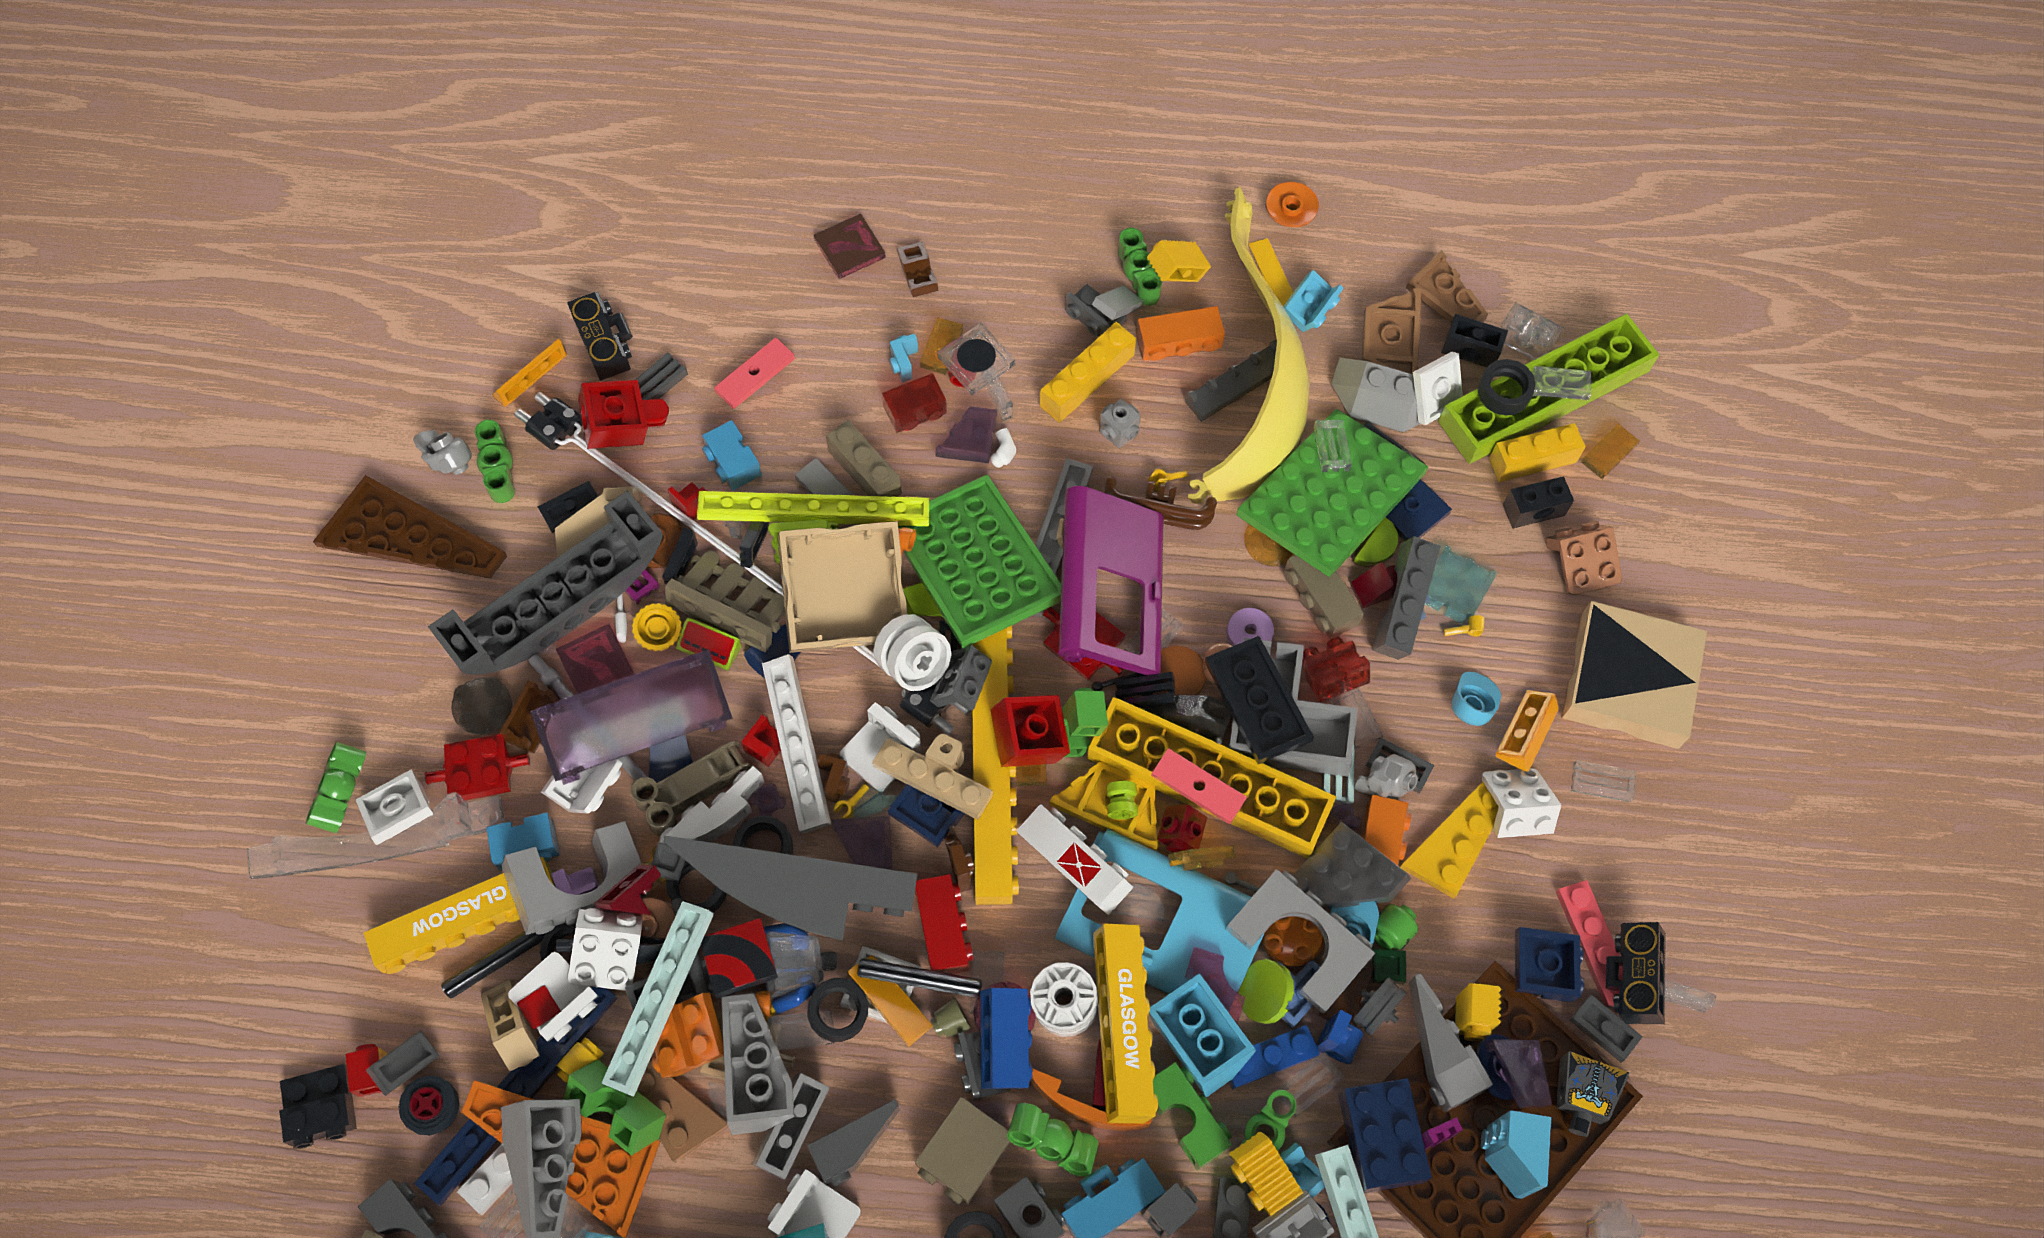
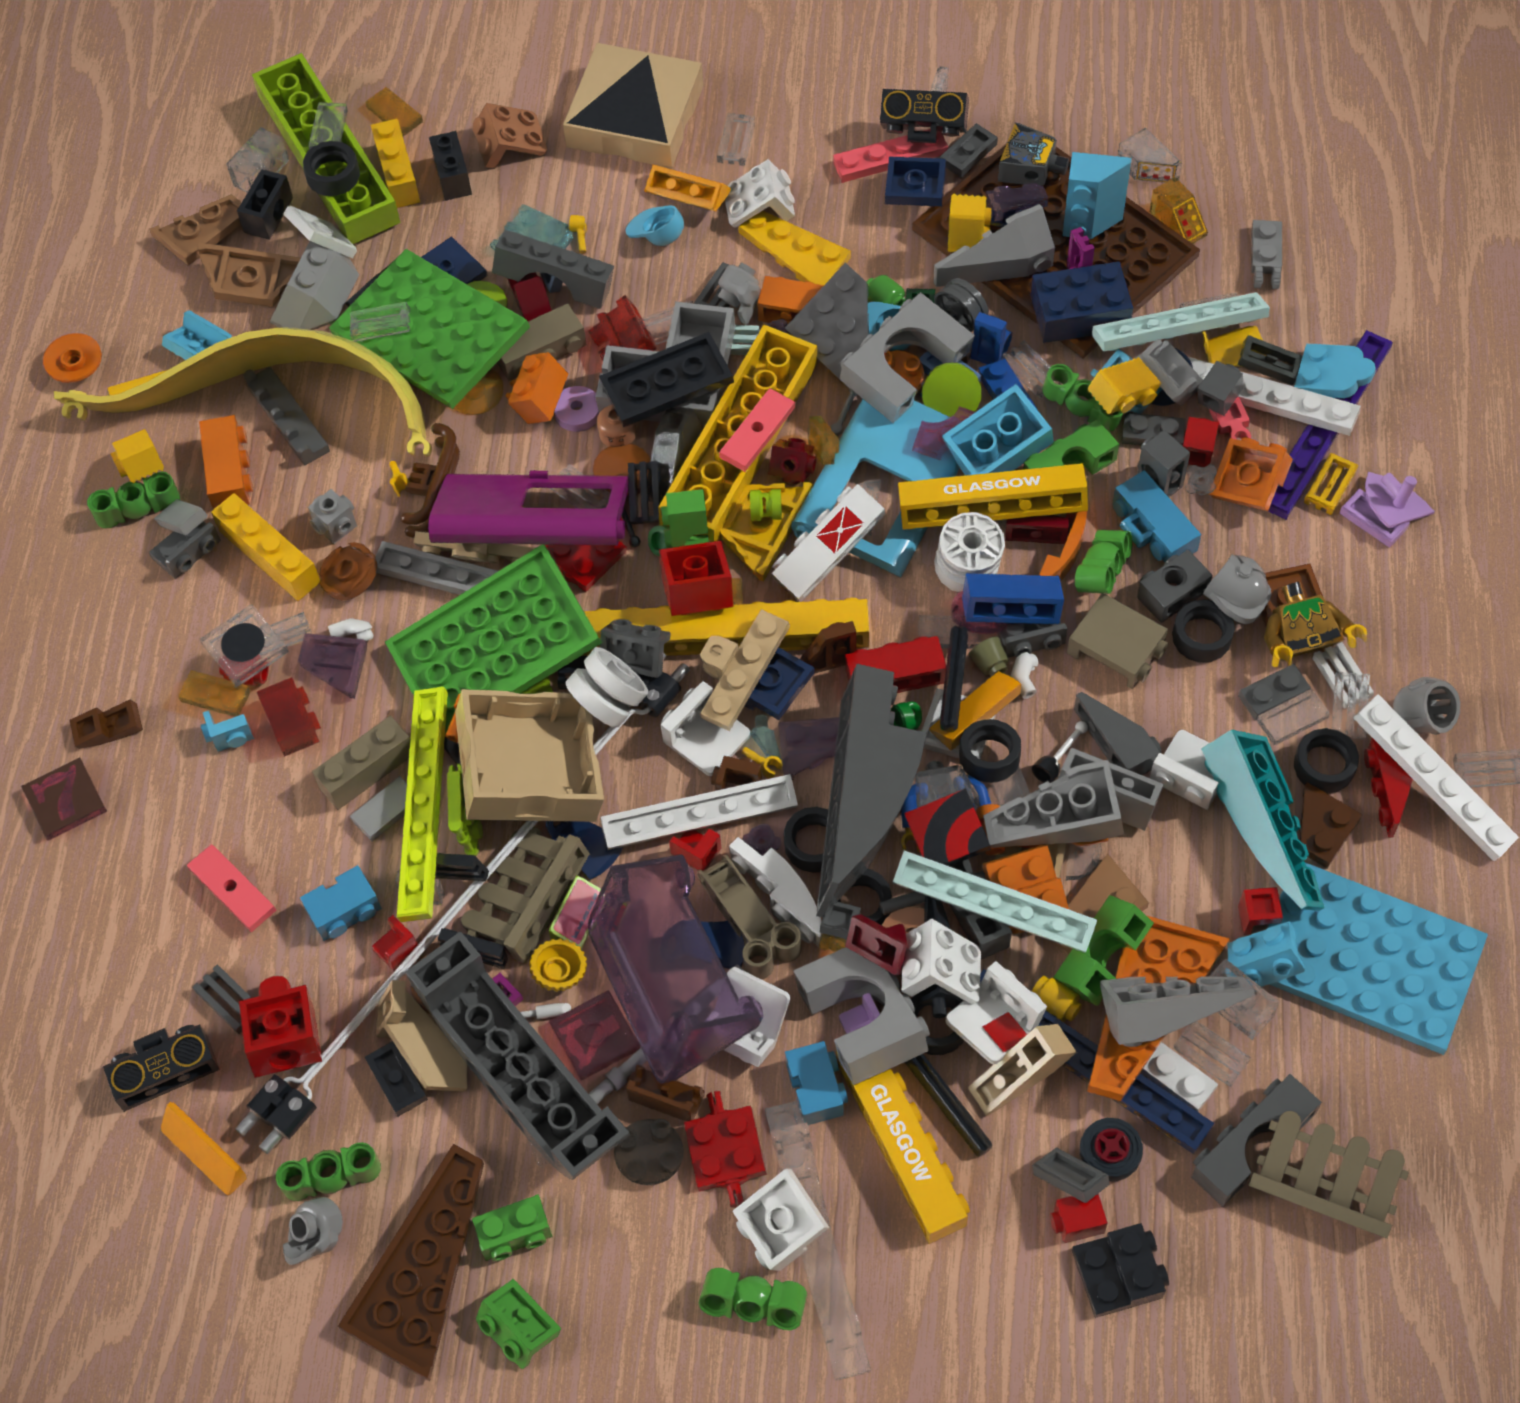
camera: 85 degrees left, 5 degrees down
(349, 607) = (516, 1323): none -> bright green bracket
(428, 597) = (512, 1228): none -> bright green bracket
(827, 1071) = (1047, 767): none -> black hinge
(884, 931) = (904, 715): none -> green tile
(935, 1051) = (1021, 670): none -> white arm
(1062, 440) = (348, 571): none -> dark orange tile
(1264, 590) = (537, 388): none -> orange brick

